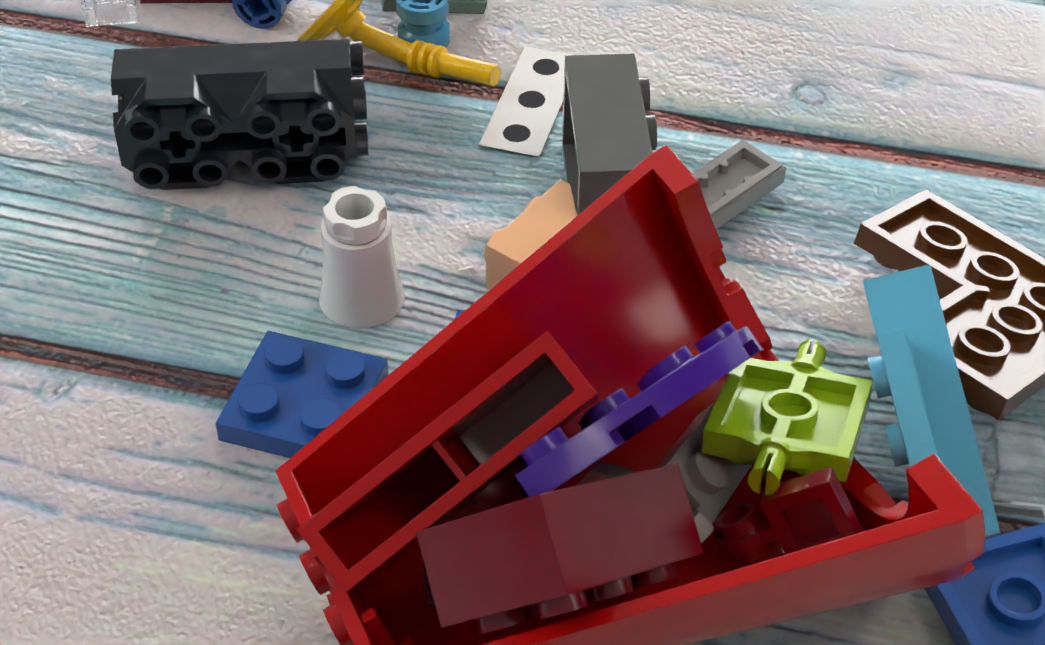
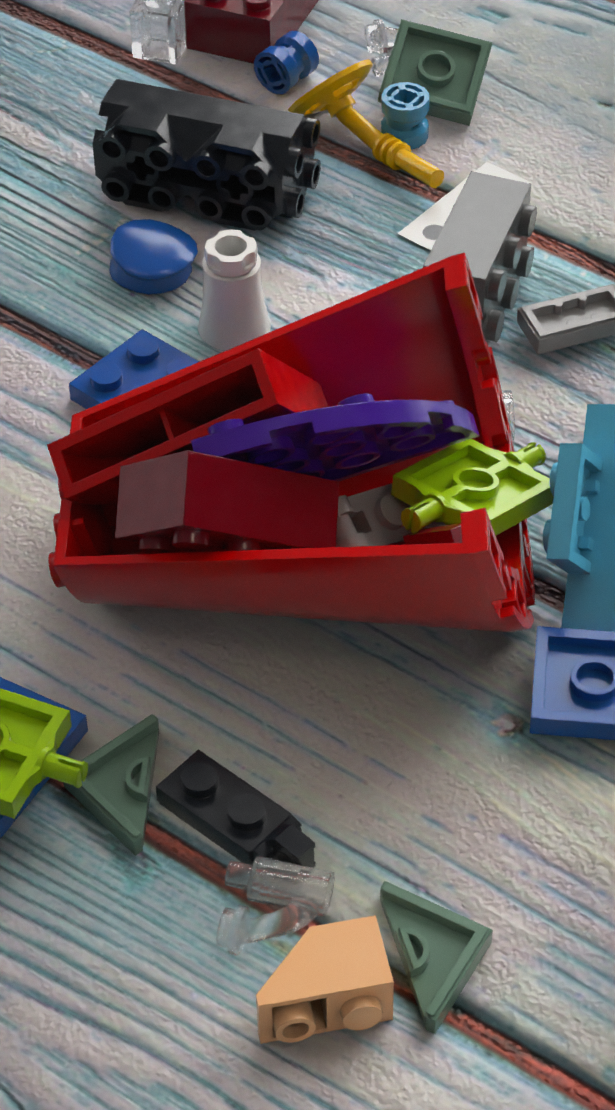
camera: 25 degrees right, 0 degrees up
(231, 242) = (151, 256): none -> blue piece

